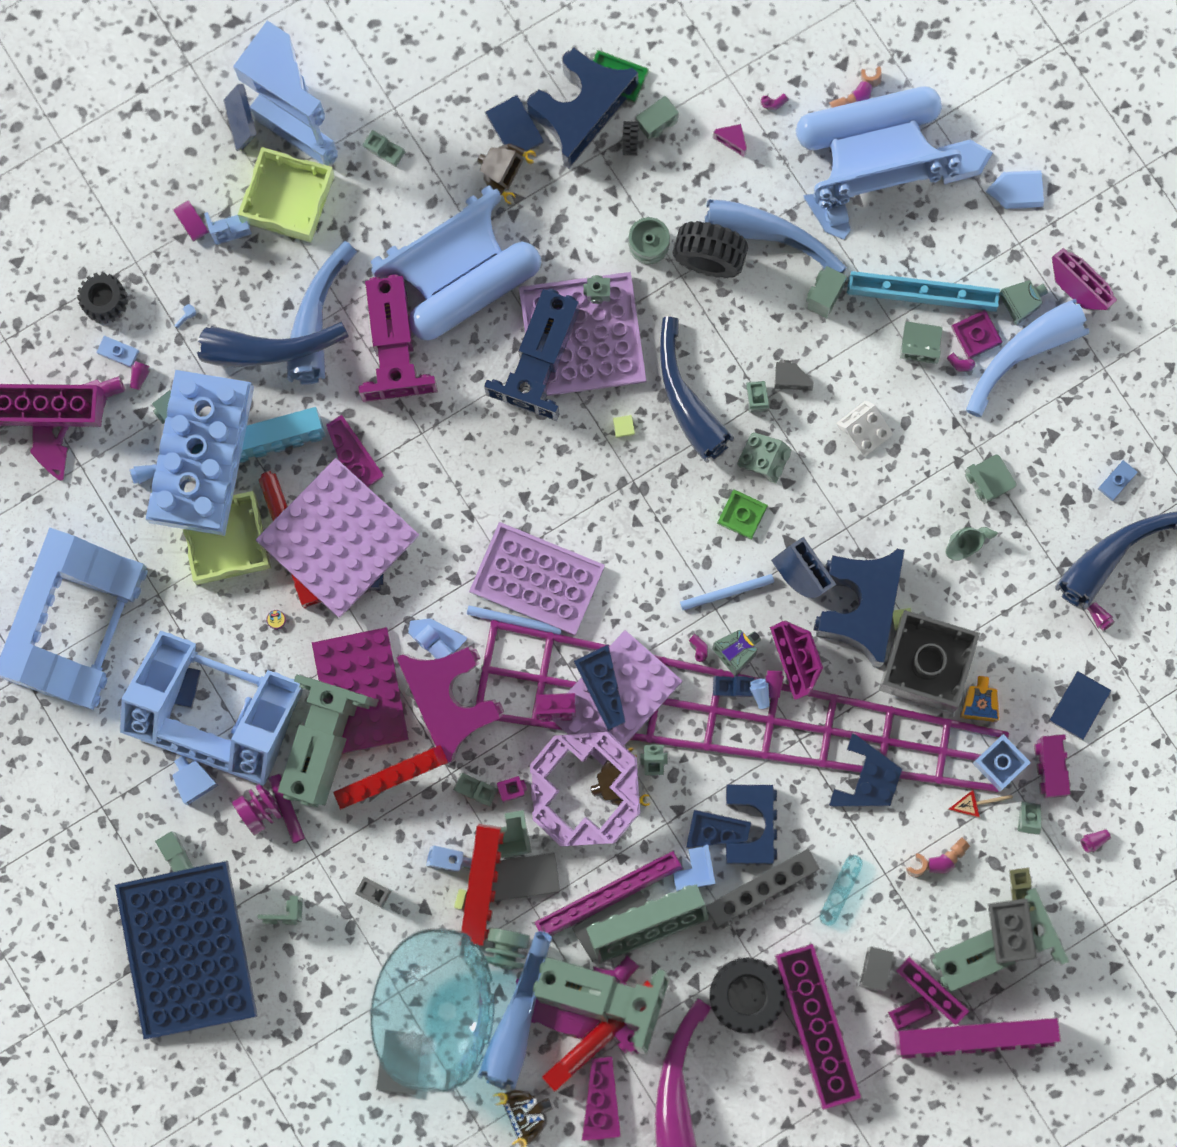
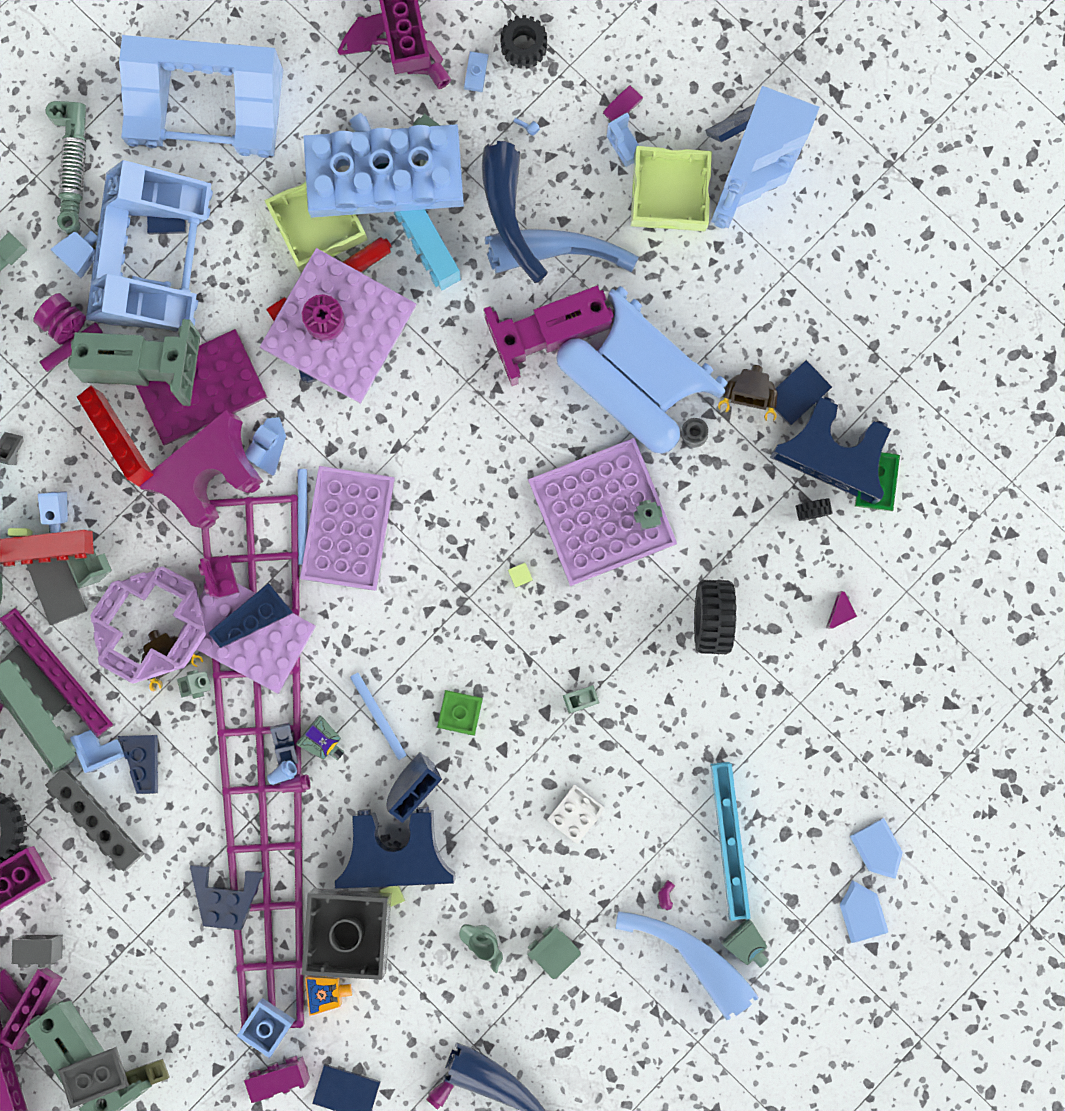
camera: 70 degrees right, 5 degrees up
(97, 764) = (73, 145): none -> sand green piece
(138, 375) = (457, 97): magenta cone -> none
(276, 619) = (250, 290): tile -> none
(332, 554) = (334, 317): none -> magenta wheel
(352, 452) = (428, 320): magenta wing -> none
(384, 148) = (743, 271): sand green slope -> none
(475, 789) = (130, 520): sand green slope -> none
(505, 785) = (130, 551): magenta brick -> none
(524, 222) = (694, 441): none -> dark grey wheel
(539, 356) = (567, 474): dark blue brick -> none
(649, 251) = (724, 554): sand green wheel -> none
(657, 118) = (842, 531): sand green brick -> none
(697, 422) = (539, 646): dark blue brick -> none
(701, 648) = (316, 704): magenta arm -> none
(760, 798) = (130, 808): dark blue arch -> none
(762, 225) = (756, 647): medium blue brick -> none
(765, 456) = (522, 720): sand green bracket -> none
(773, 104) = (888, 644): magenta arm -> none
(791, 377) = (609, 728): dark grey slope -> none
(798, 657) = (324, 801): magenta wedge -> none
(827, 290) = (703, 743): sand green brick -> none
(832, 219) = (790, 727): light blue panel -> none
(843, 891) = (110, 899): clear light blue beam -> none
(862, 91) = (922, 731): nougat piece -> none
(877, 144) = (871, 759): light blue piece -> none
(921, 342) = (677, 850): sand green bracket -> none
(942, 863) = (158, 991): nougat piece -> none
(968, 804) = (222, 1003): piece -> none
(976, 334) = (700, 904): magenta tile -> none
(1030, 818) = (220, 1067): sand green slope -> none
(1081, 281) = (779, 1001): magenta wedge -> none
(1117, 480) = (584, 1081): medium blue plate -> none

